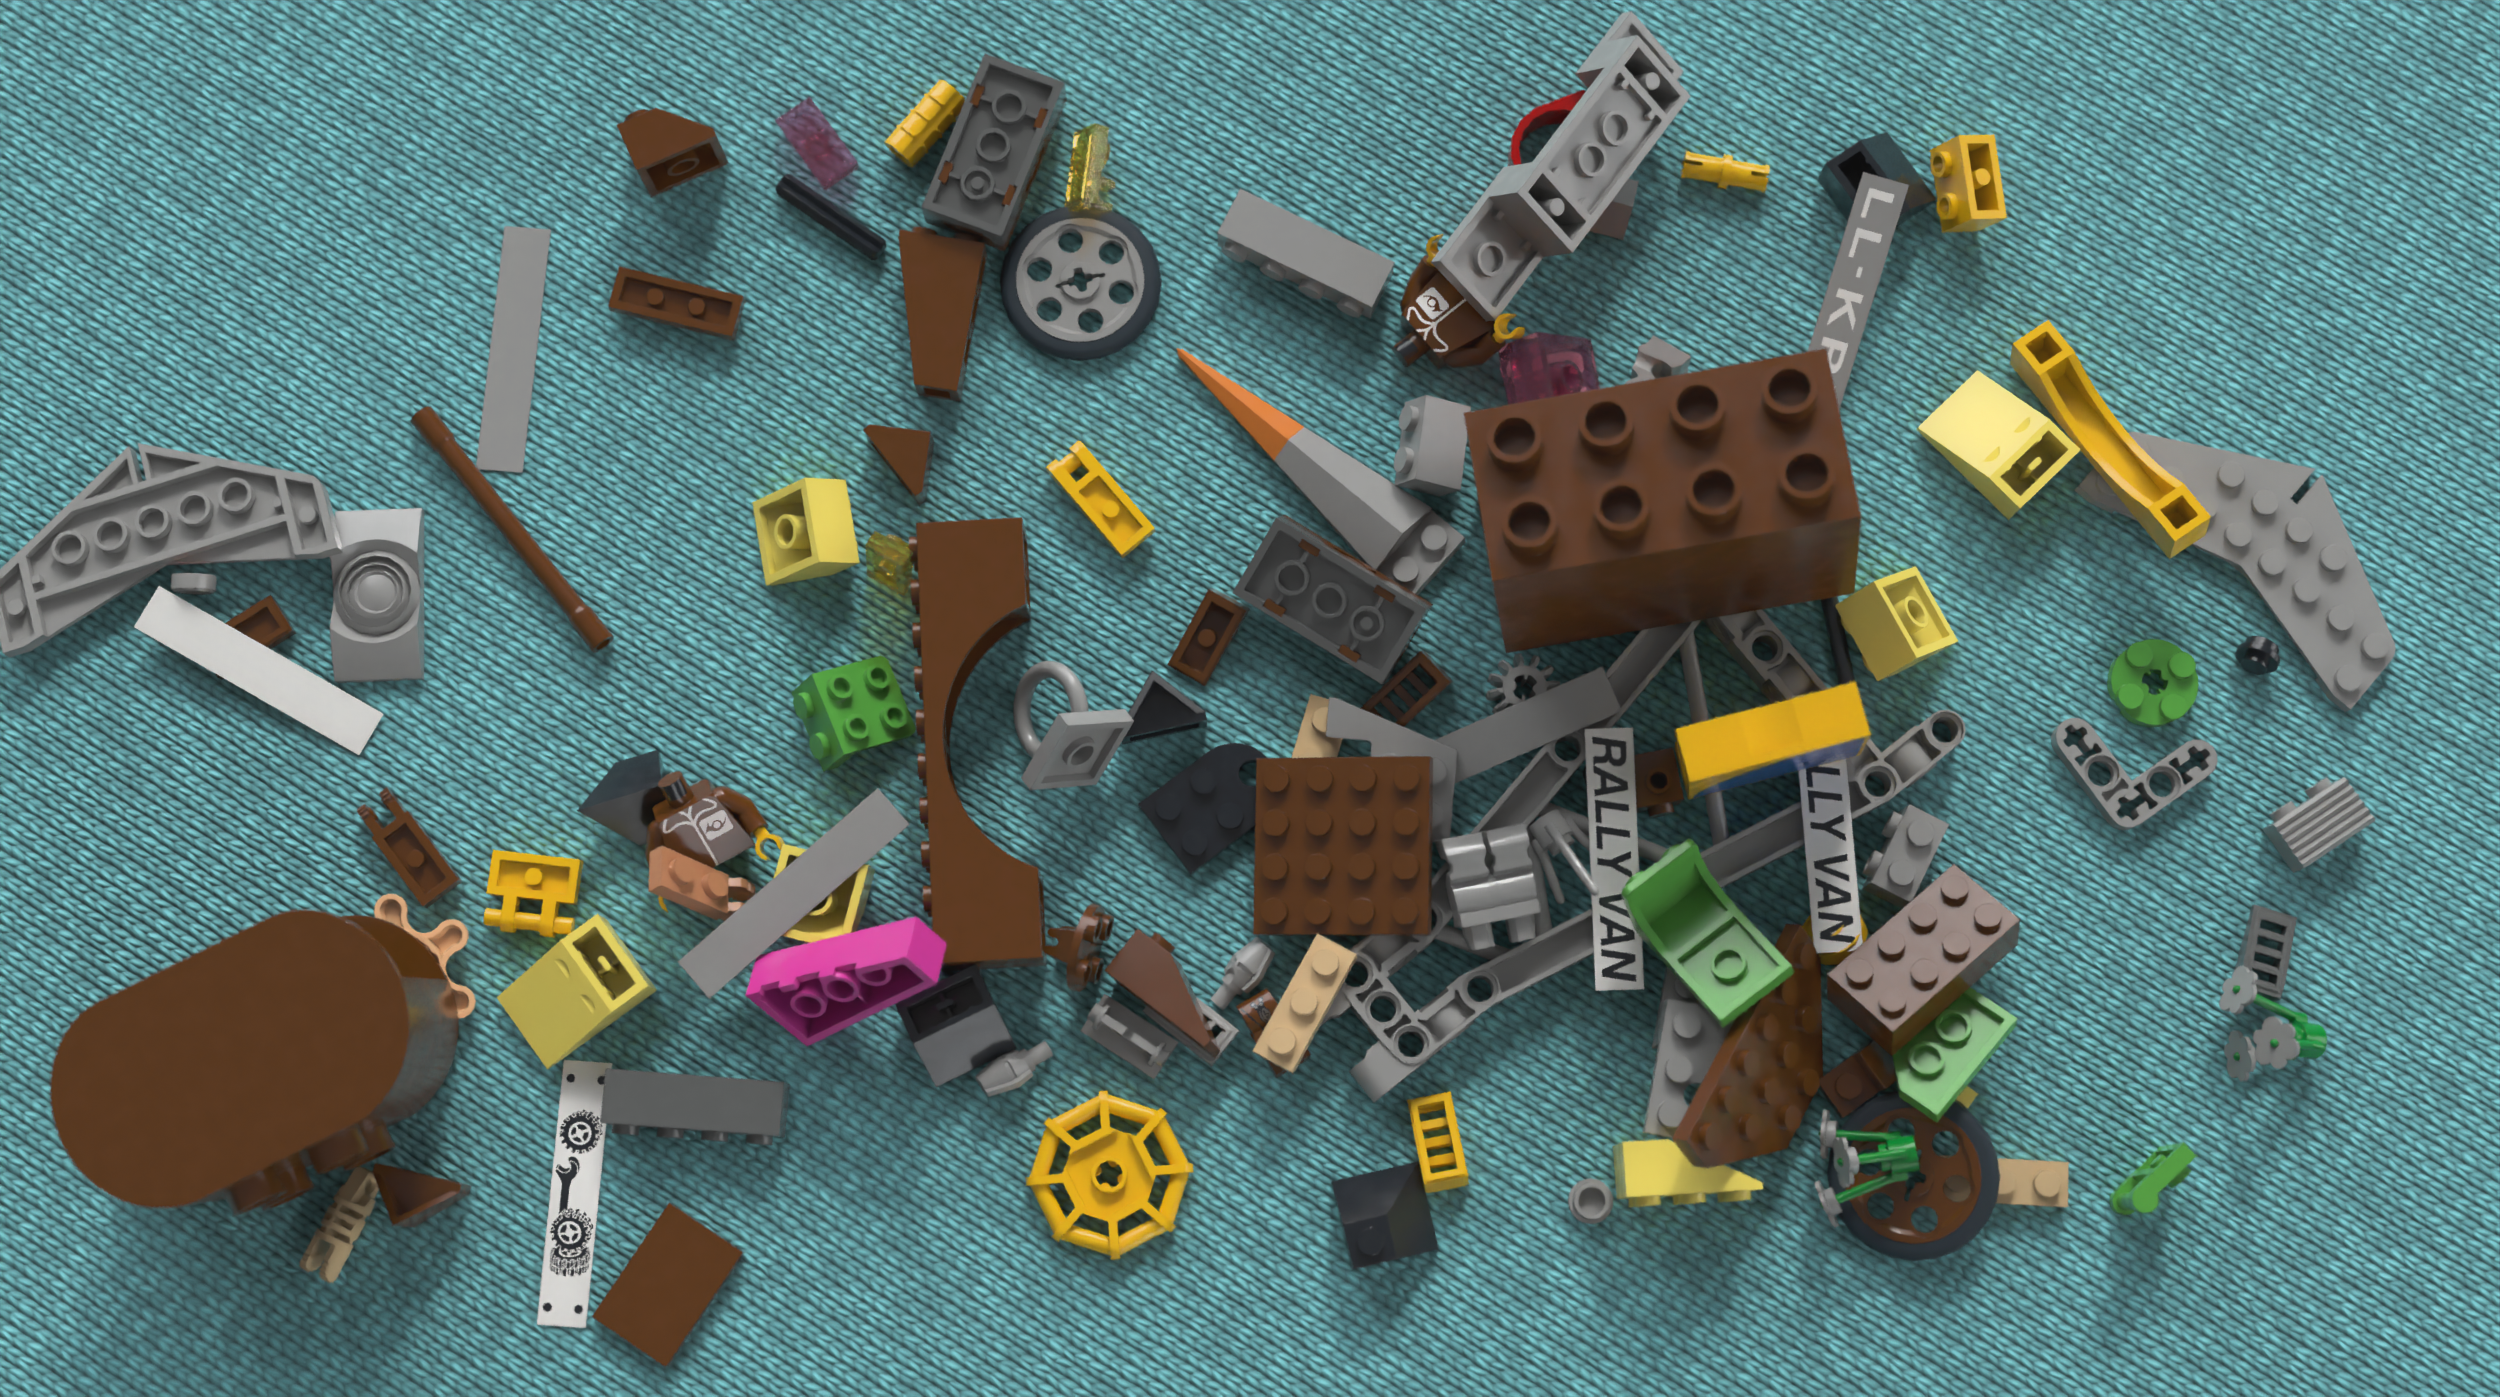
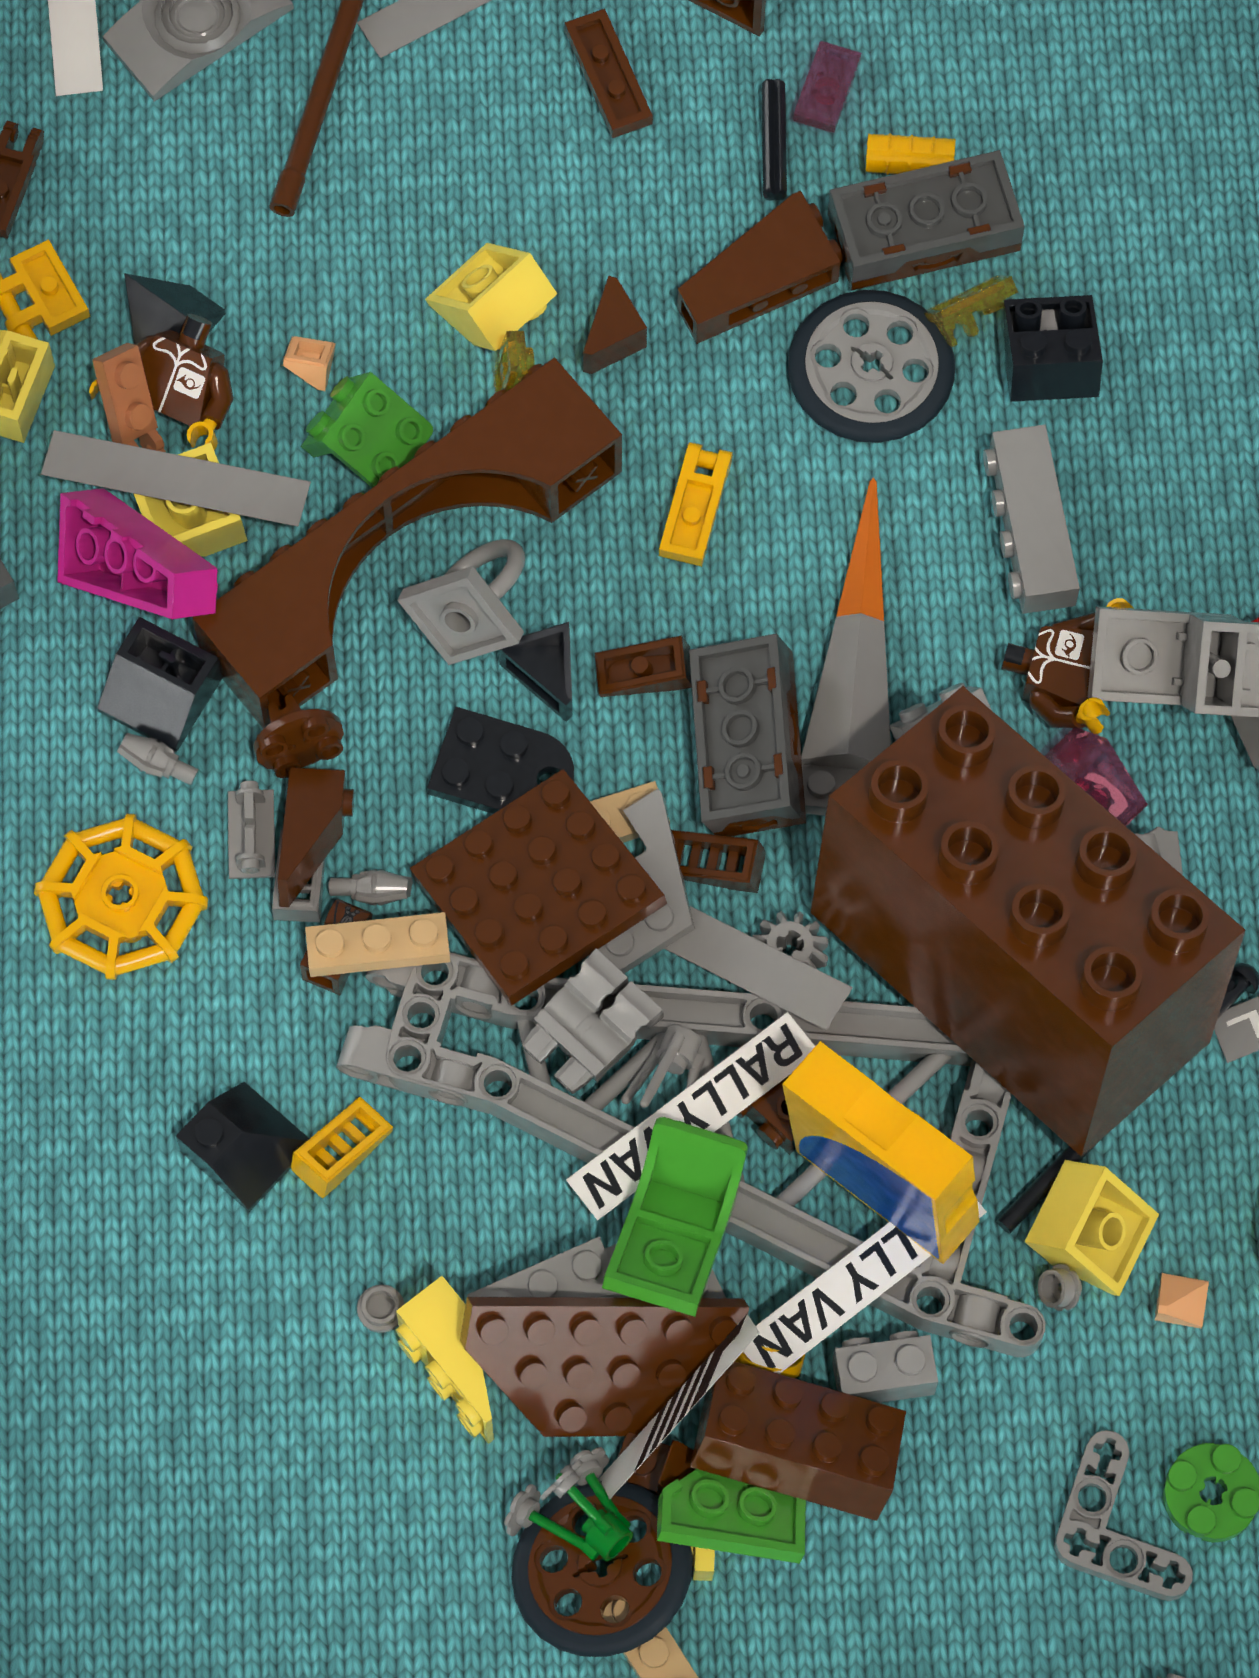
camera: 55 degrees right, 10 degrees down
(753, 712) = (310, 360): none -> light nougat slope
(1172, 135) = (1052, 348): none -> black slope
(1840, 1031) = (679, 1406): none -> white sticker
(1926, 680) = (1059, 1288): none -> light grey plate
(1992, 598) = (1181, 1300): none -> light nougat slope

